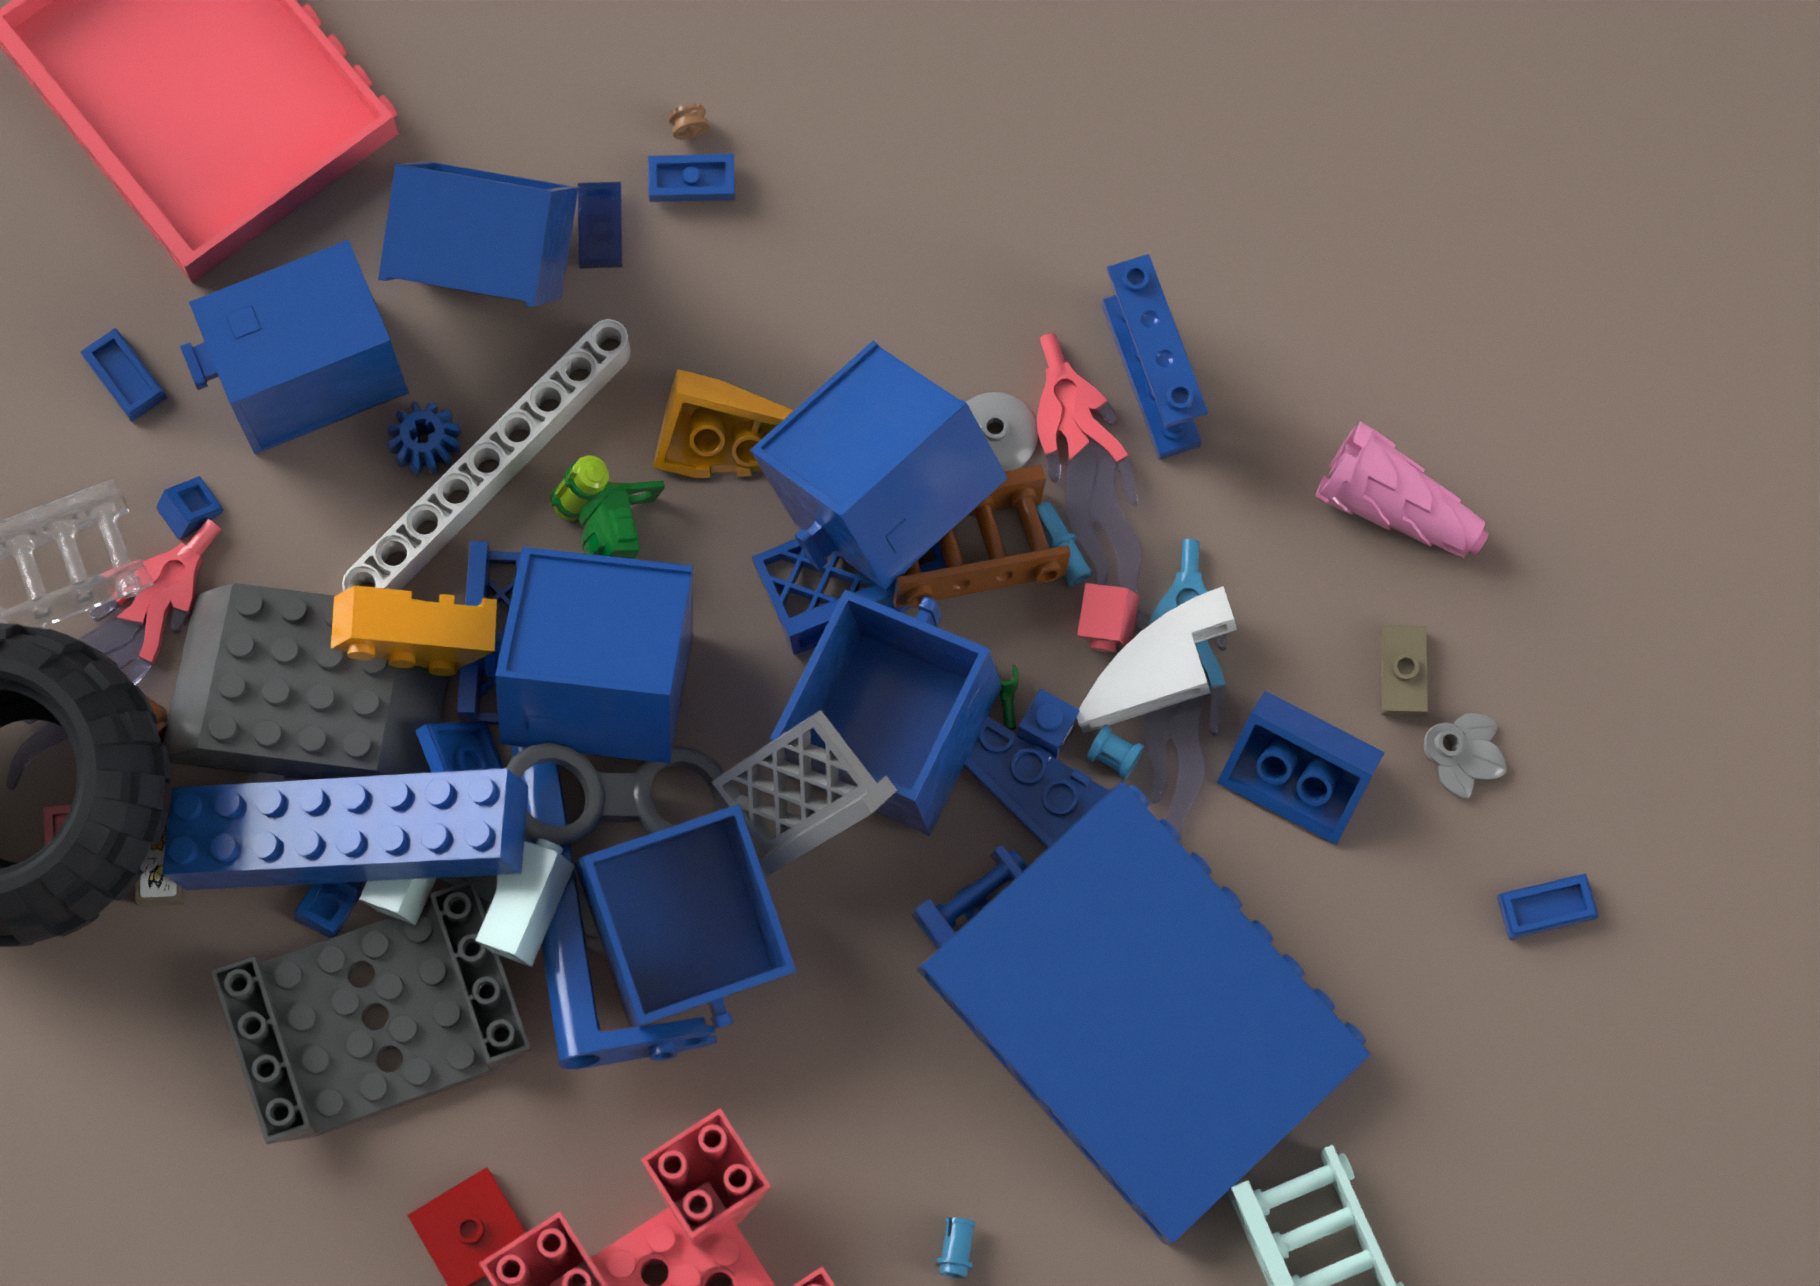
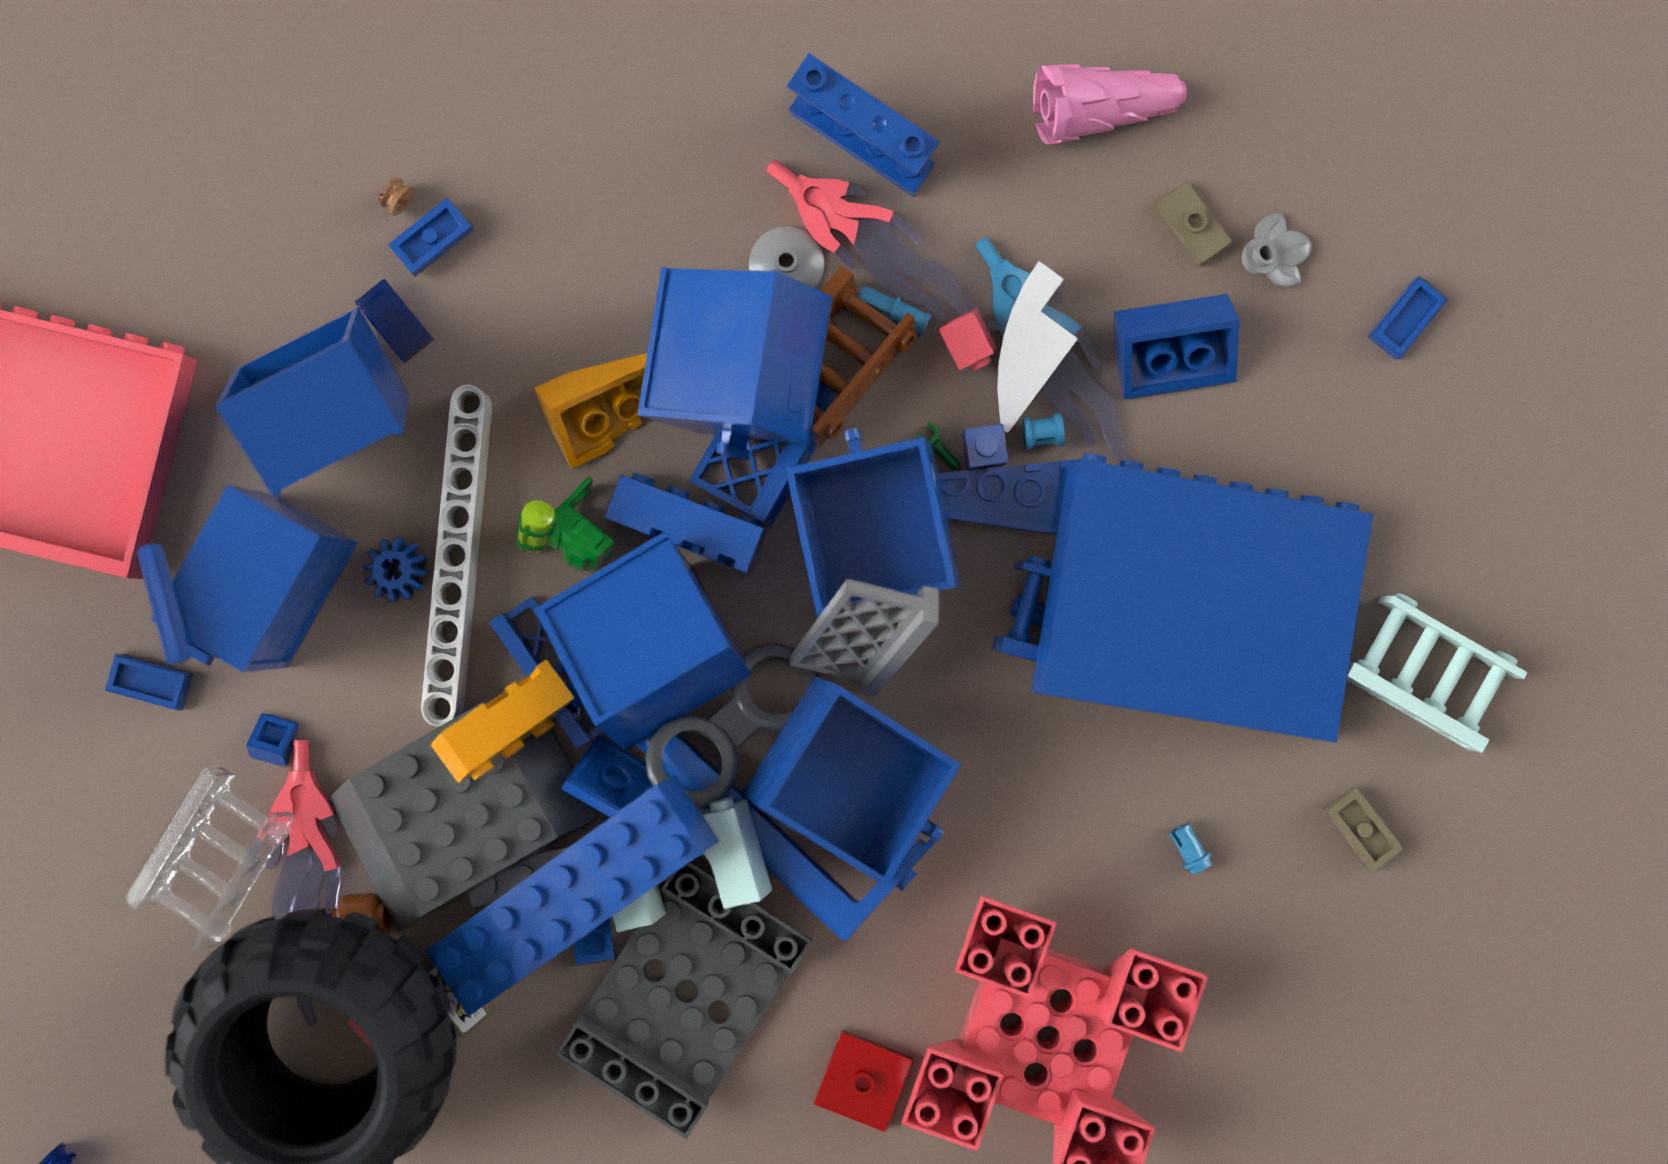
camera: 35 degrees left, 15 degrees up
(213, 296) = (164, 603): none -> blue axle
(722, 594) = (688, 524): none -> blue wedge

